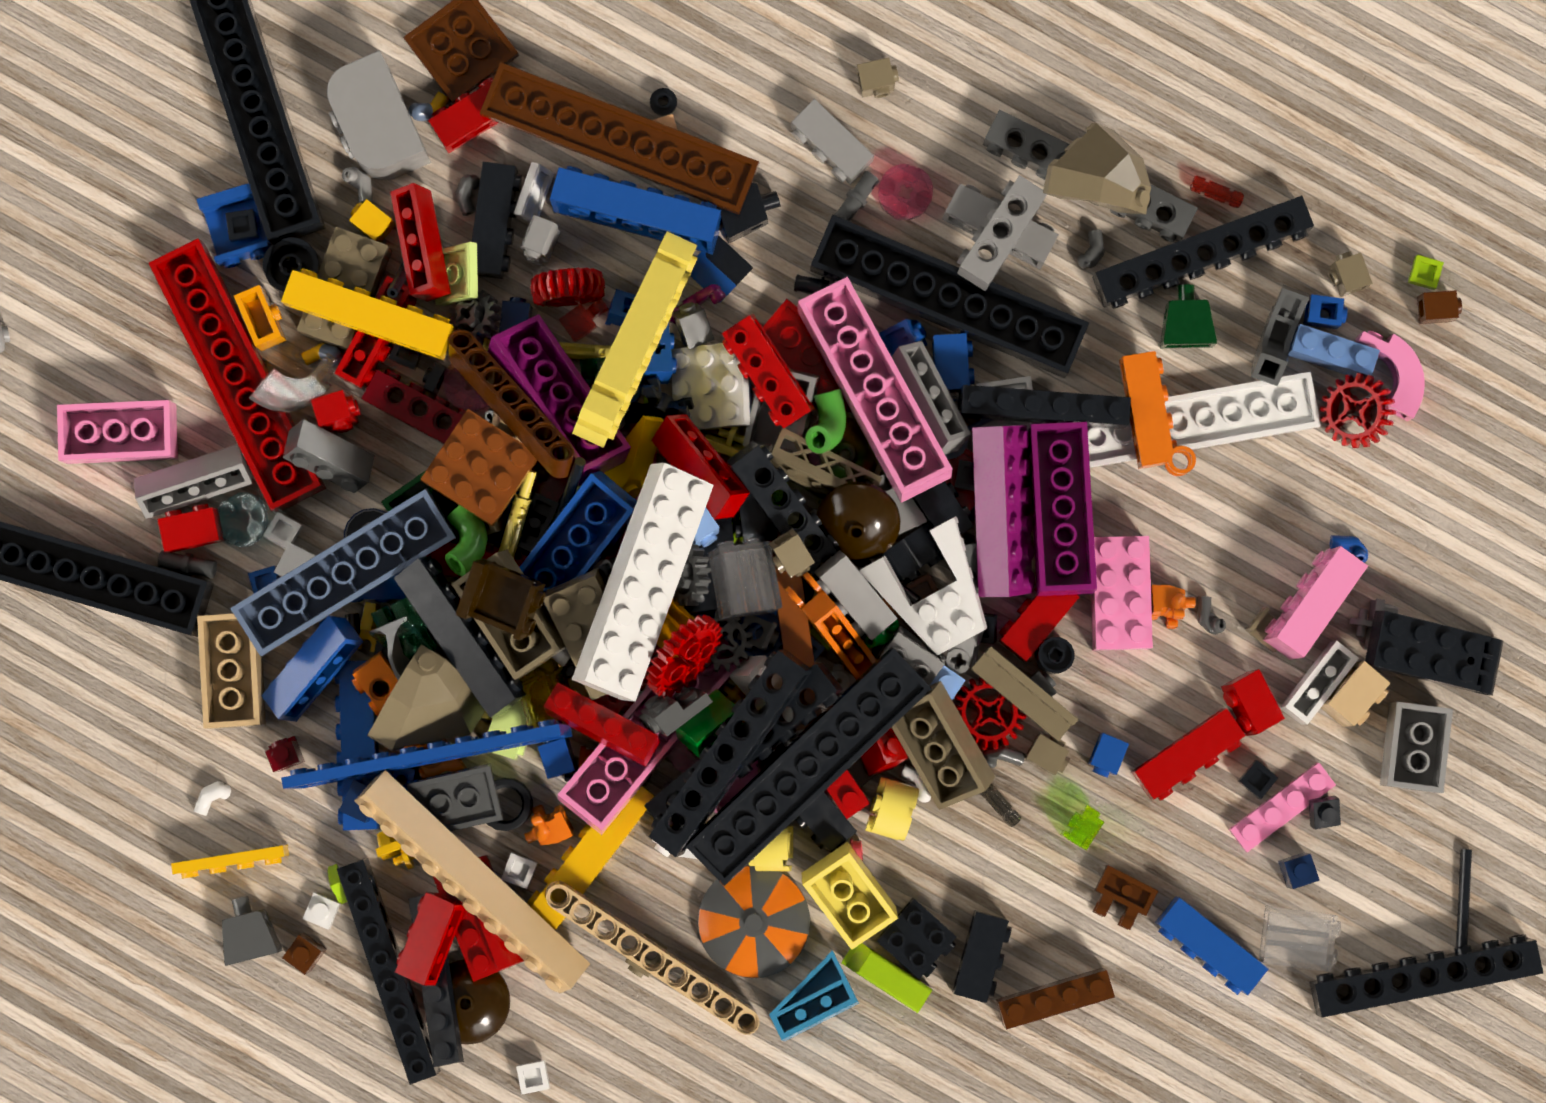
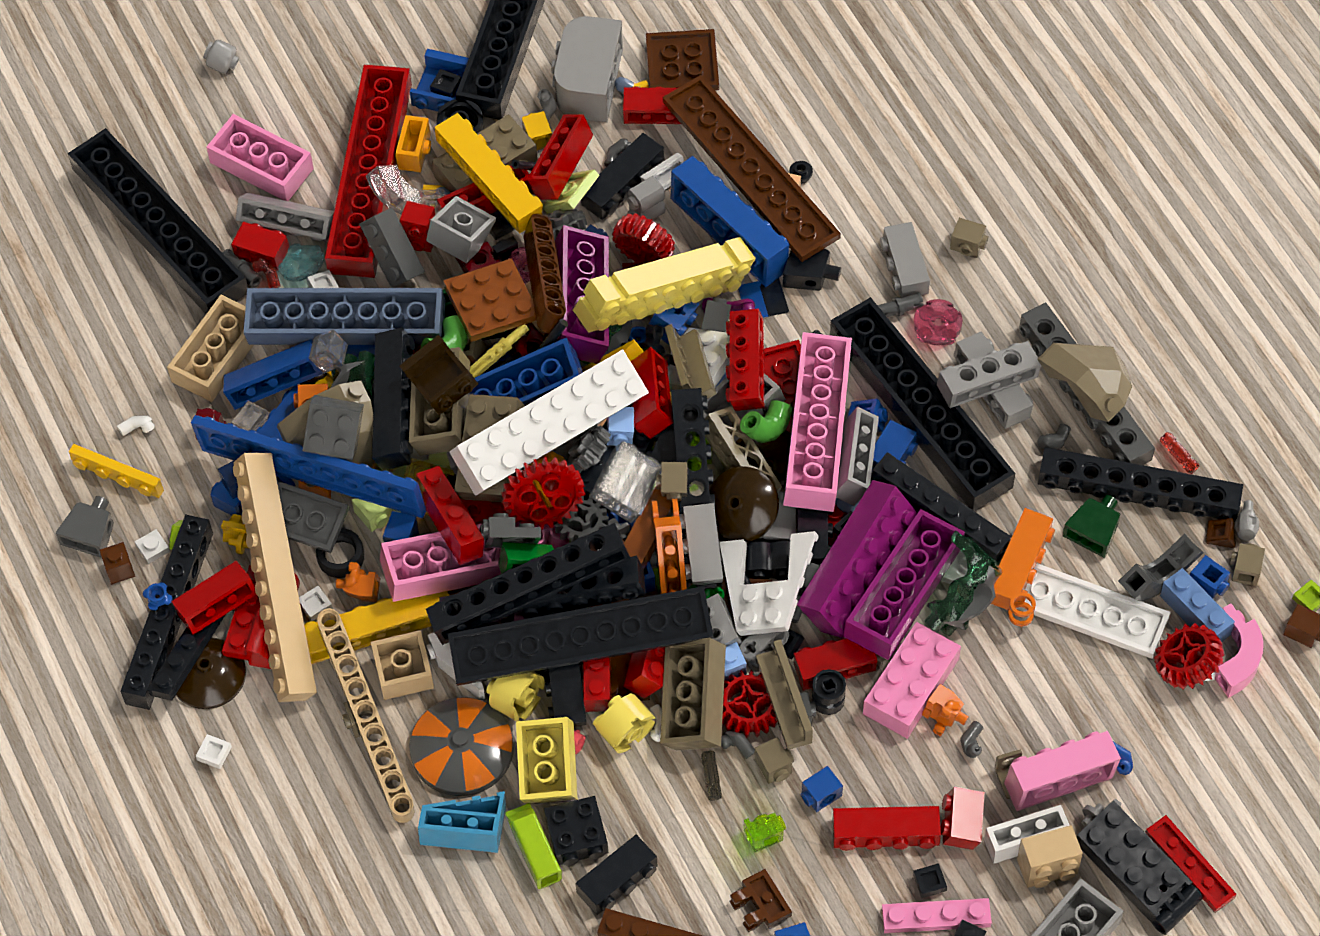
camera: 35 degrees right, 25 degrees down
(218, 550) = (269, 271): none -> clear red arm
(321, 726) = (250, 417): none -> clear brick
(358, 622) = (328, 351): none -> clear brick
(369, 977) = (157, 589): none -> blue plate
(384, 394) = (460, 229): none -> light grey slope
(434, 716) = (333, 427): none -> dark grey brick
(648, 883) = (402, 665): none -> tan brick
(714, 405) = (690, 361): none -> dark tan fence
(1128, 489) = (966, 595): none -> clear green hips
(1303, 253) = (1221, 533): none -> reddish brown slope
(1325, 230) = (1247, 522): none -> light grey piece
(1473, 613) = (1191, 862): none -> red plate

